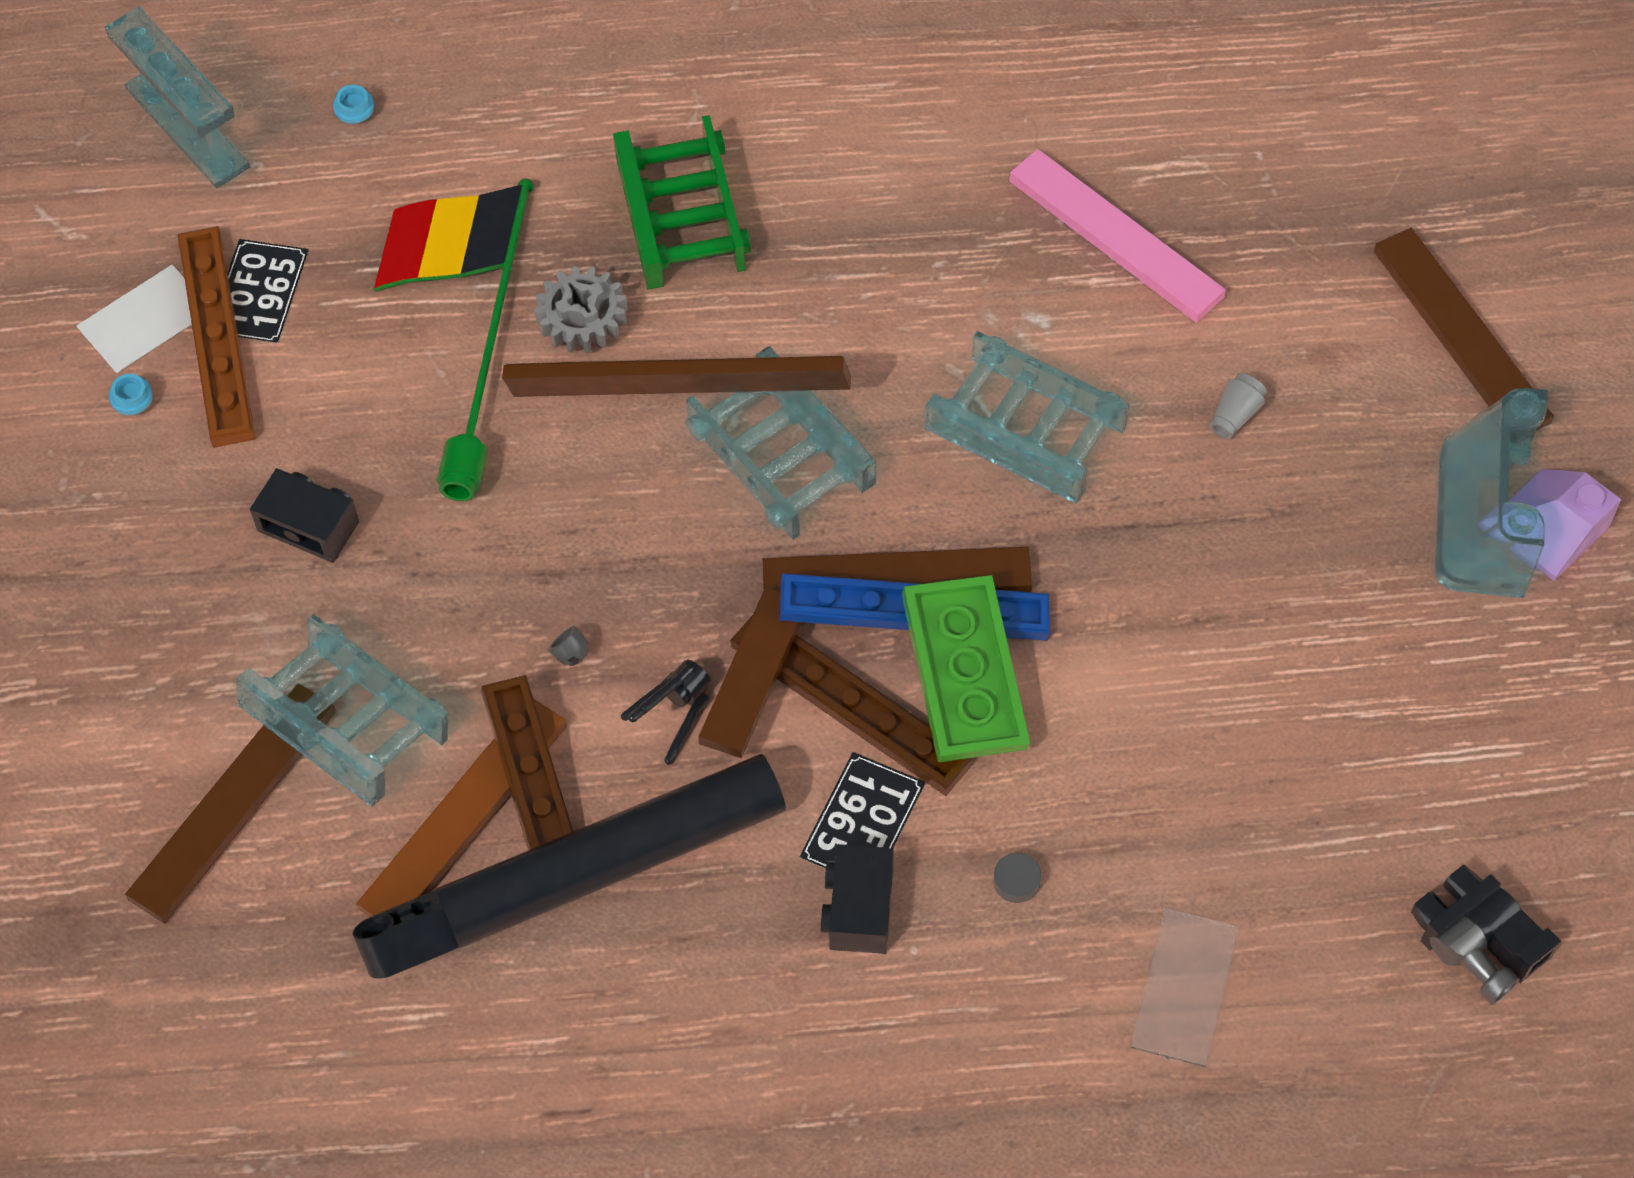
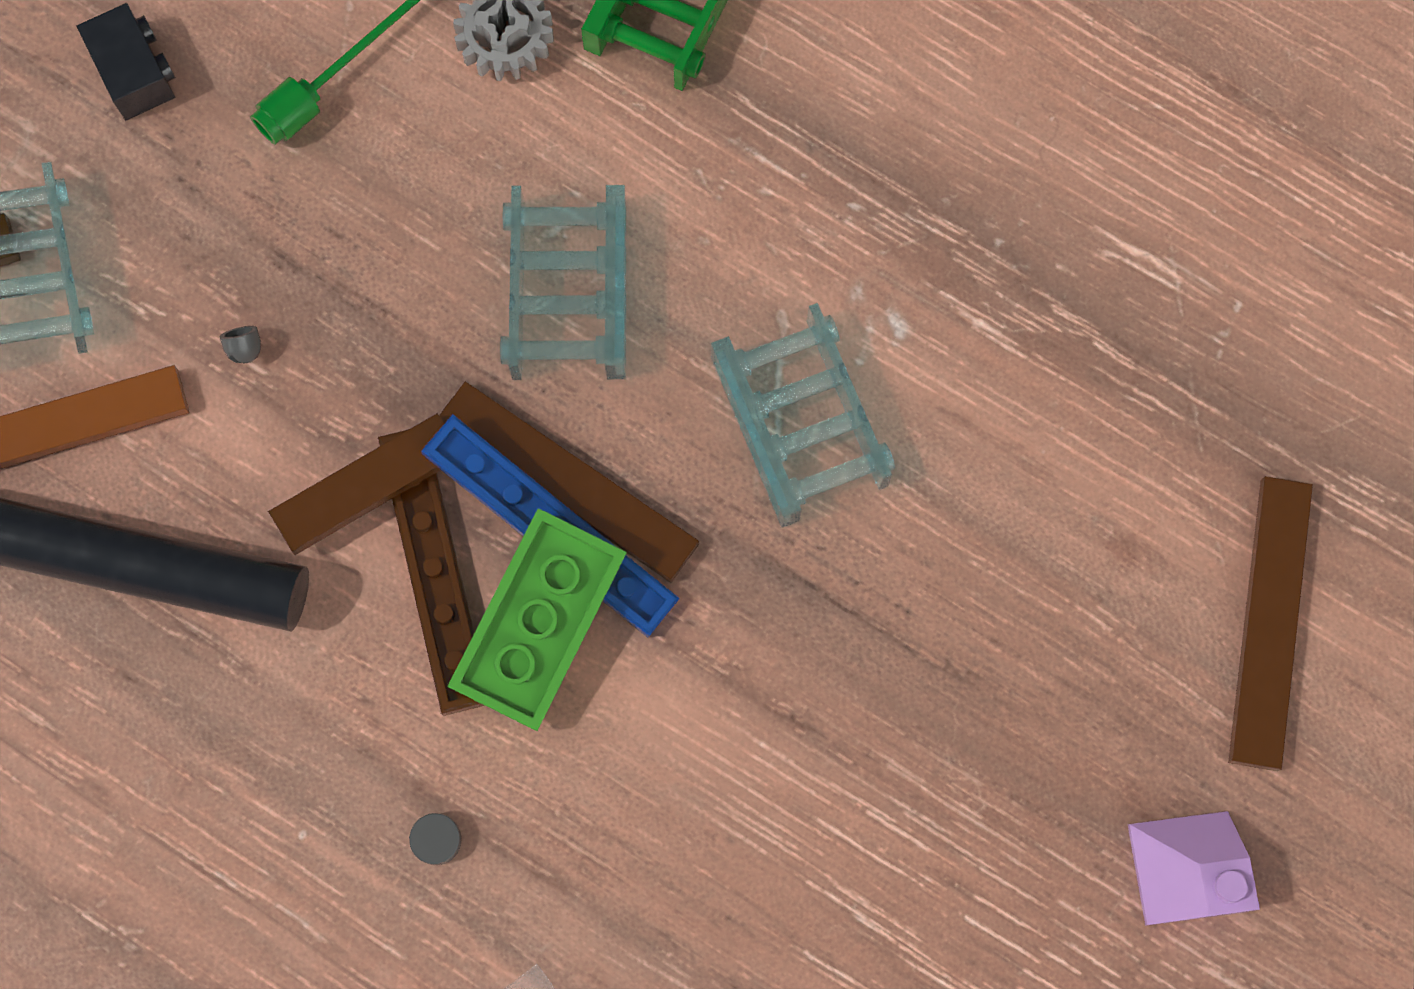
camera: 35 degrees right, 15 degrees up
(526, 761) = (118, 428): reddish brown tile -> none
(677, 376) = (522, 160): reddish brown tile -> none
(681, 687) = (302, 448): black plant -> none
(860, 898) = (284, 759): black brick -> none
(863, 809) = (357, 684): black sticker -> none
(1117, 235) = (1035, 295): bright pink tile -> none
(1237, 405) = (997, 543): light grey cone -> none
(1480, 535) = (1095, 834): clear light blue windscreen -> none

